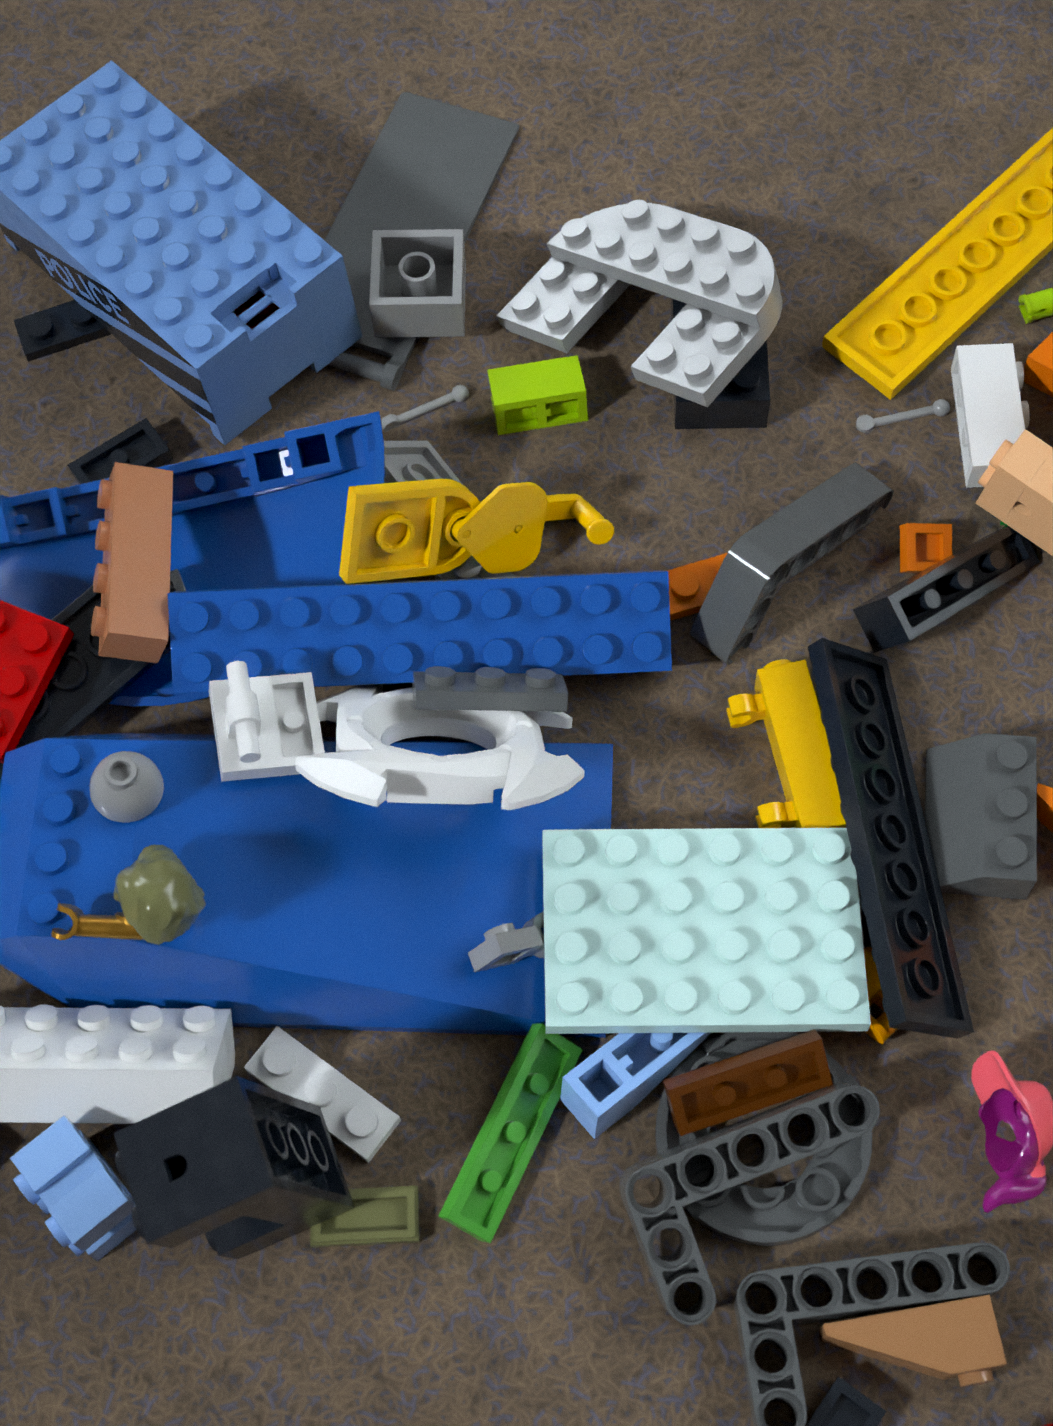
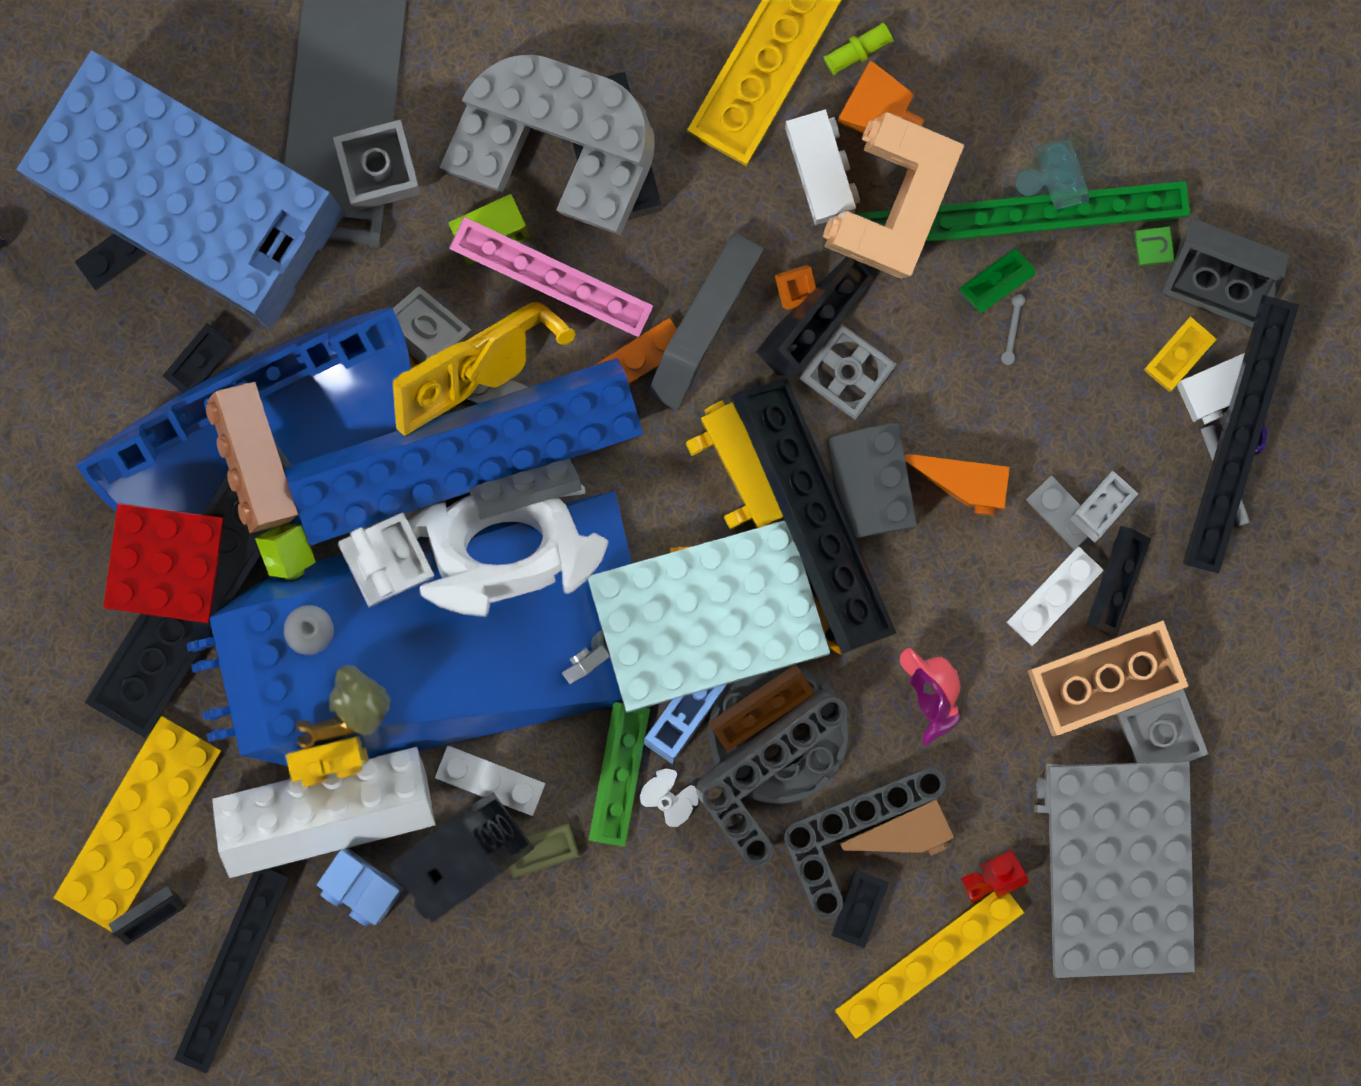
camera: 20 degrees left, 20 degrees up
(88, 974) = (316, 762): none -> yellow plate
(139, 696) = (285, 551): none -> lime brick
(458, 394) = (429, 239): light grey hinge -> none
(581, 1207) = (657, 793): none -> white piece
(602, 456) = (550, 276): none -> bright pink plate
(866, 423) = (732, 190): light grey hinge -> none
(944, 693) = (856, 360): none -> light grey piece

